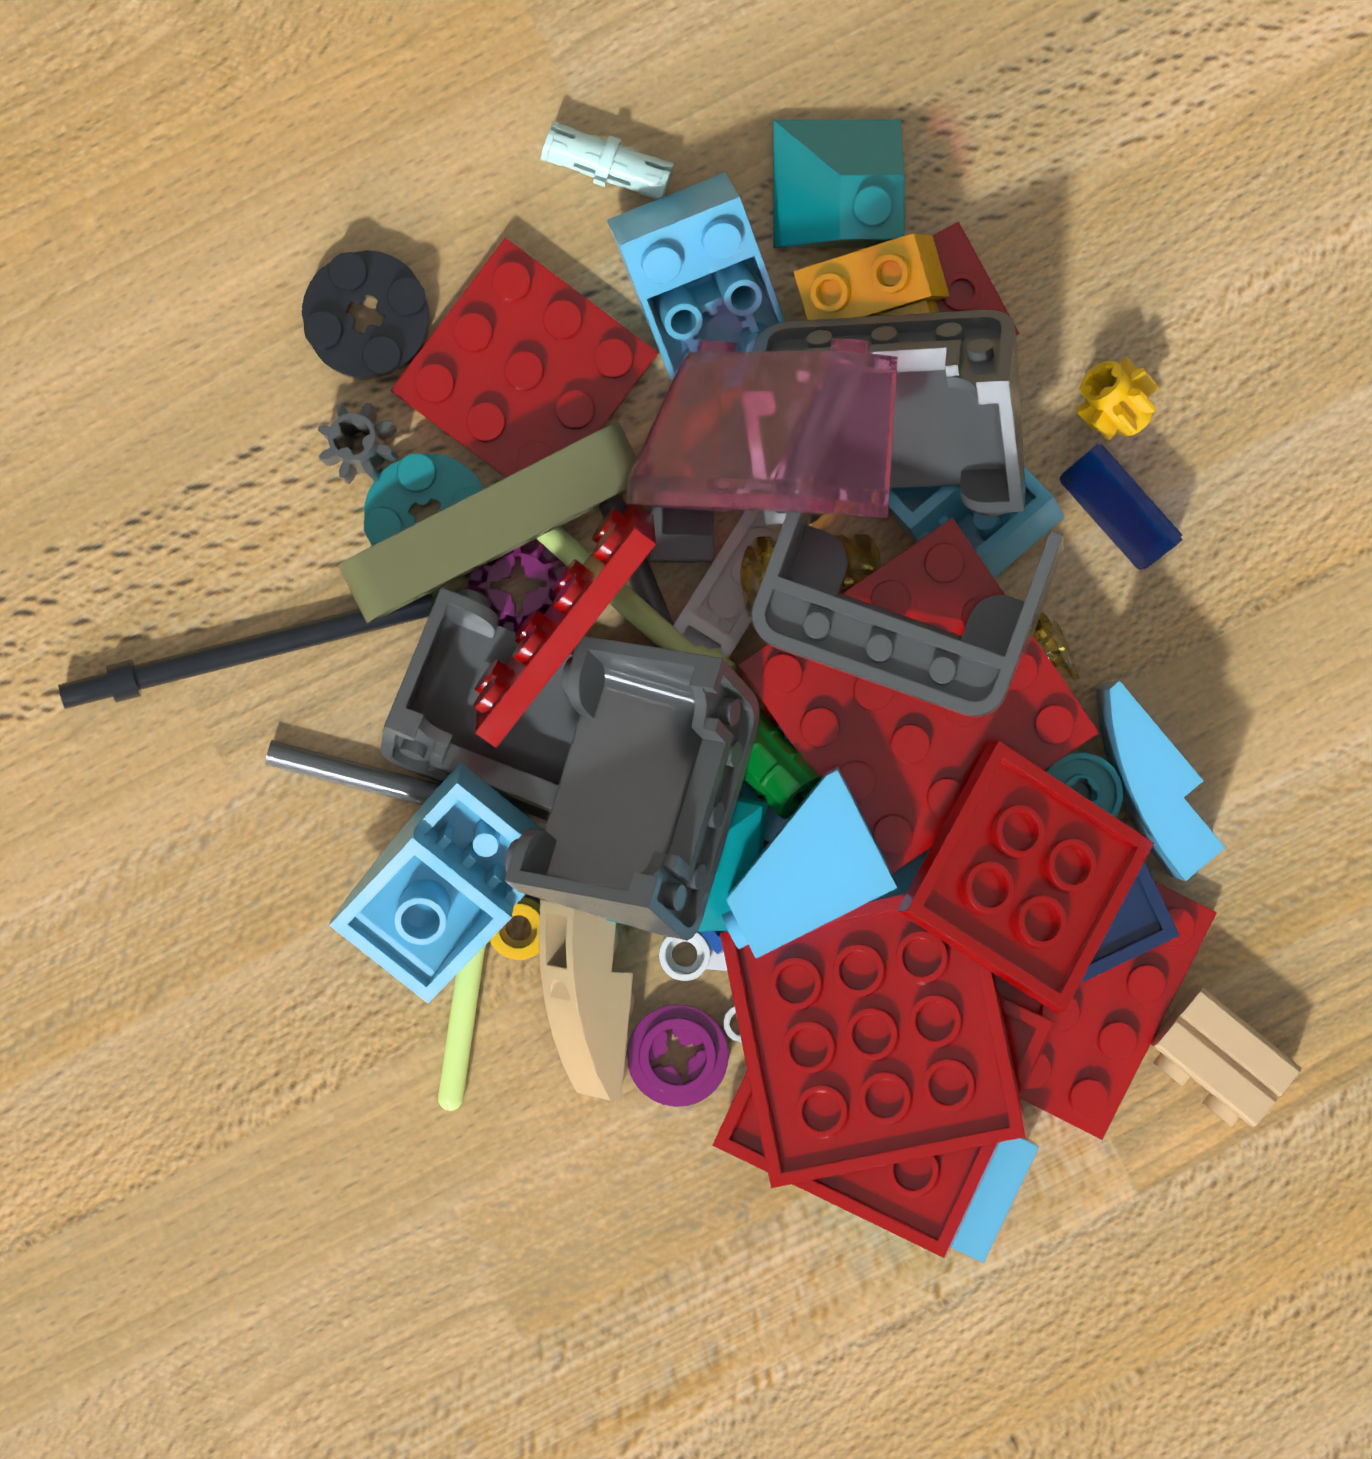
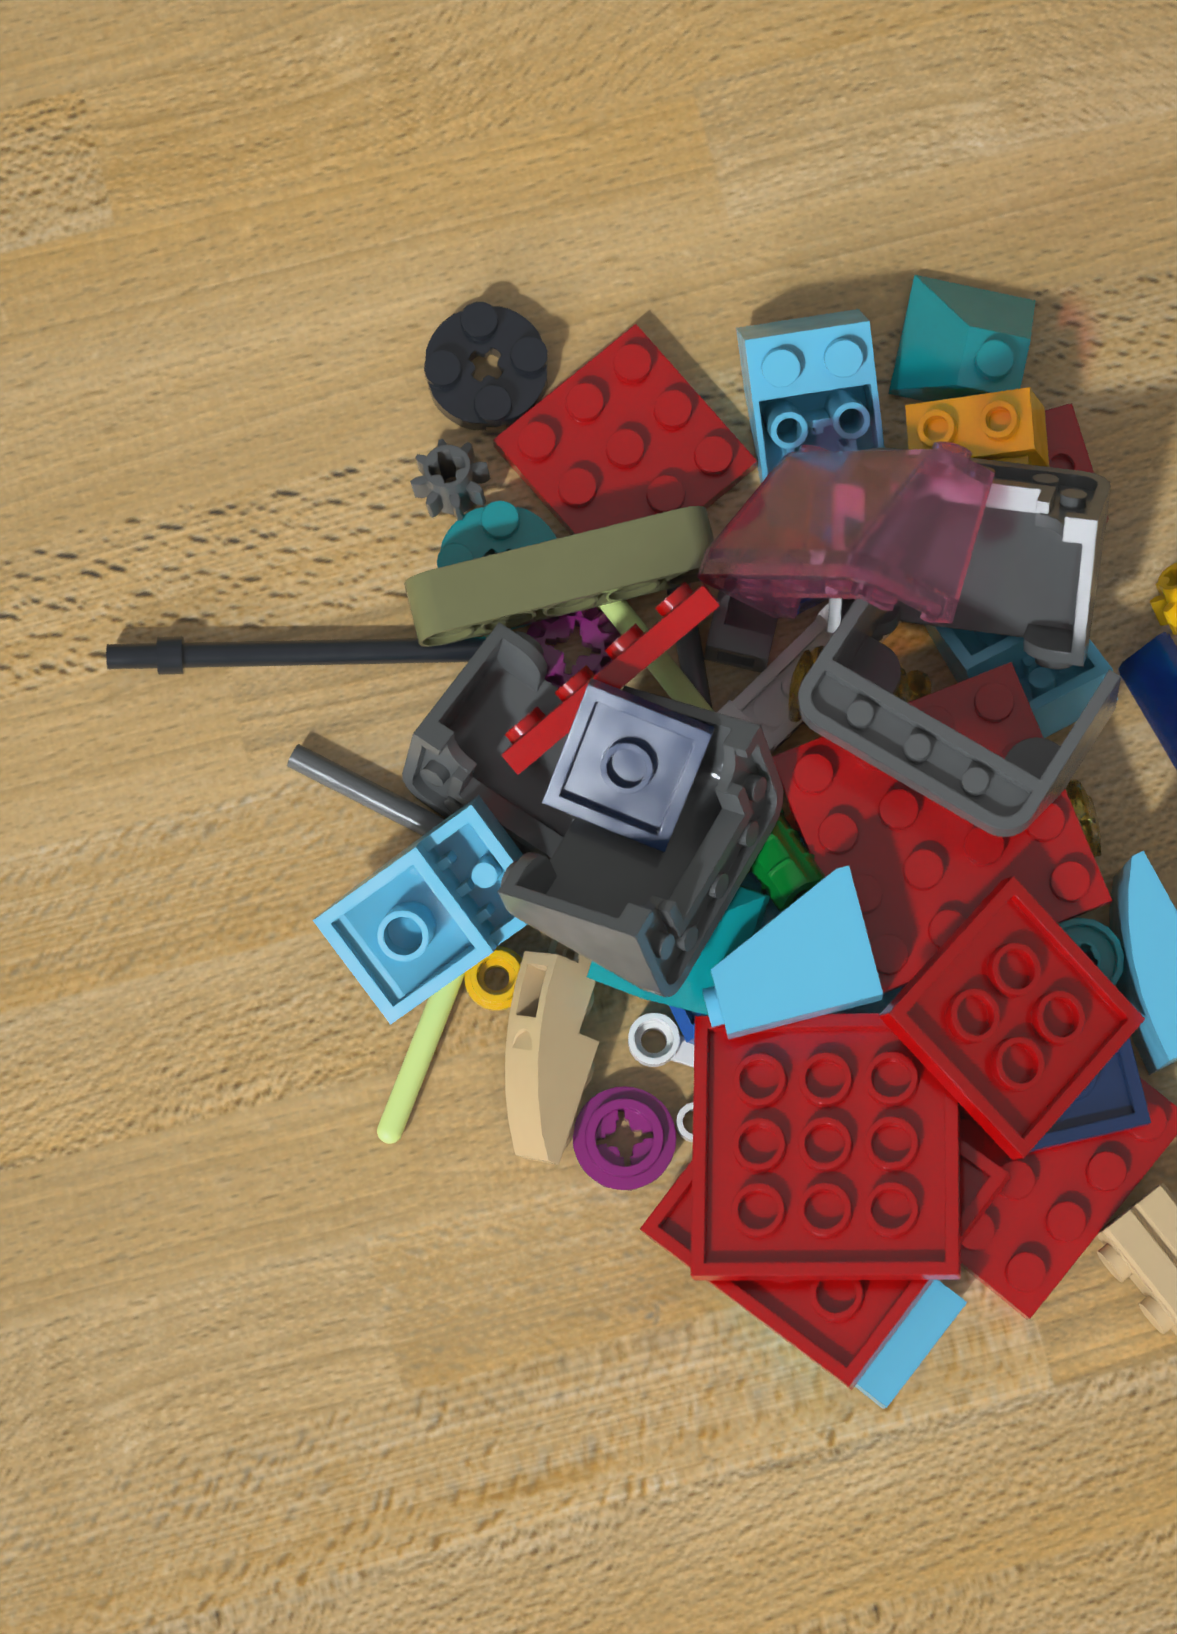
camera: 10 degrees right, 10 degrees down
(601, 719) = (628, 764): none -> plate
(606, 161) = (747, 276): light aqua pin -> none

